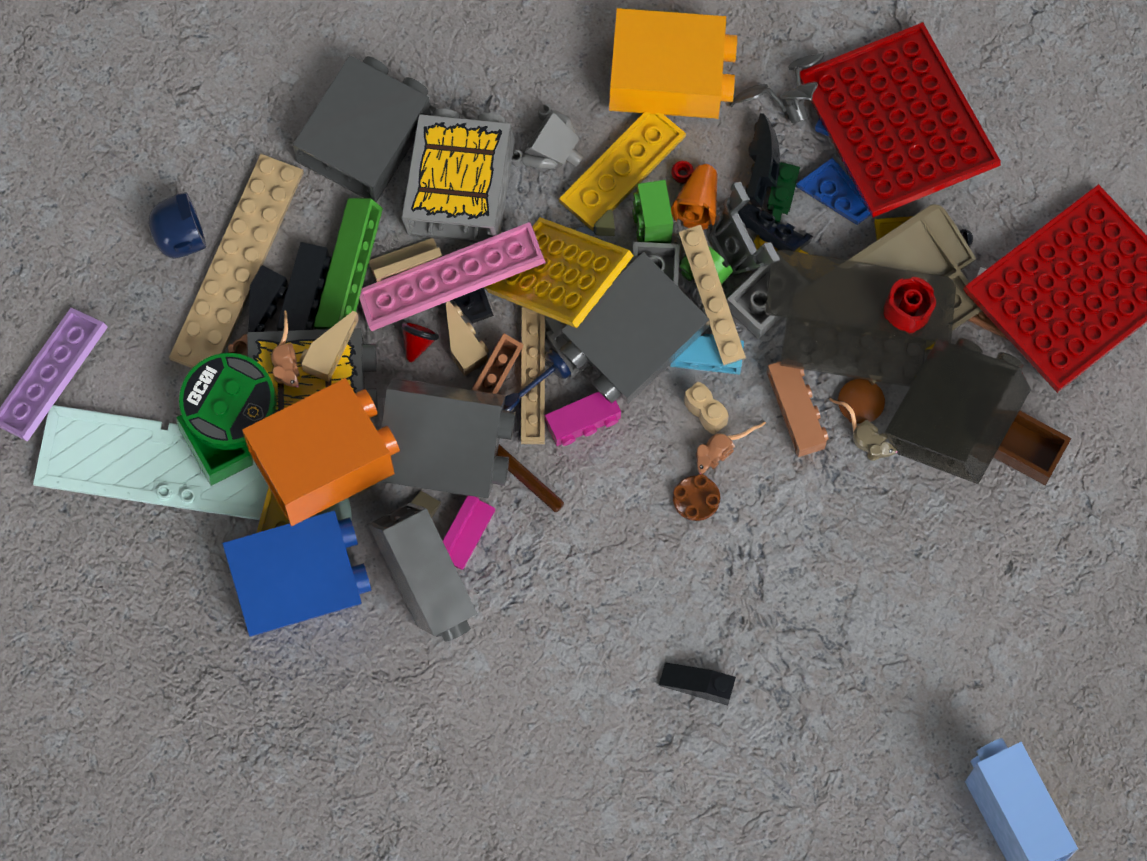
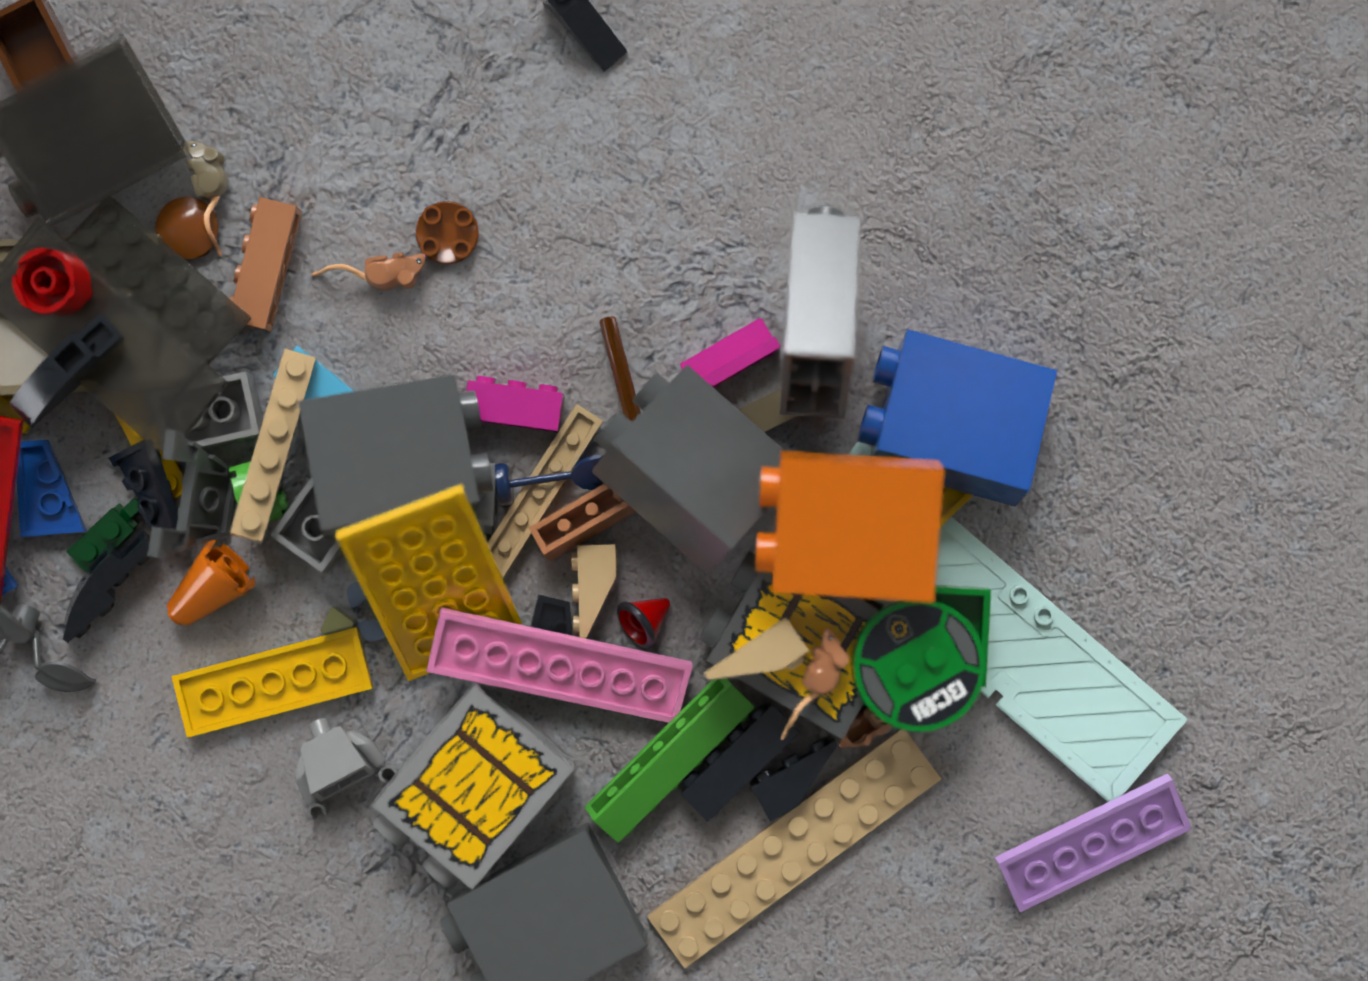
camera: 145 degrees left, 15 degrees up
(176, 227) = (840, 932): dark blue piece -> none
(404, 259) = (597, 726): tan panel -> none
(653, 213) = (276, 588): bright green brick -> none
(671, 63) = (129, 770): light orange brick -> none
(681, 165) = (197, 636): red plate -> none
(710, 411) = (367, 336): tan brick -> none
(866, 261) = (63, 368): none -> black slope

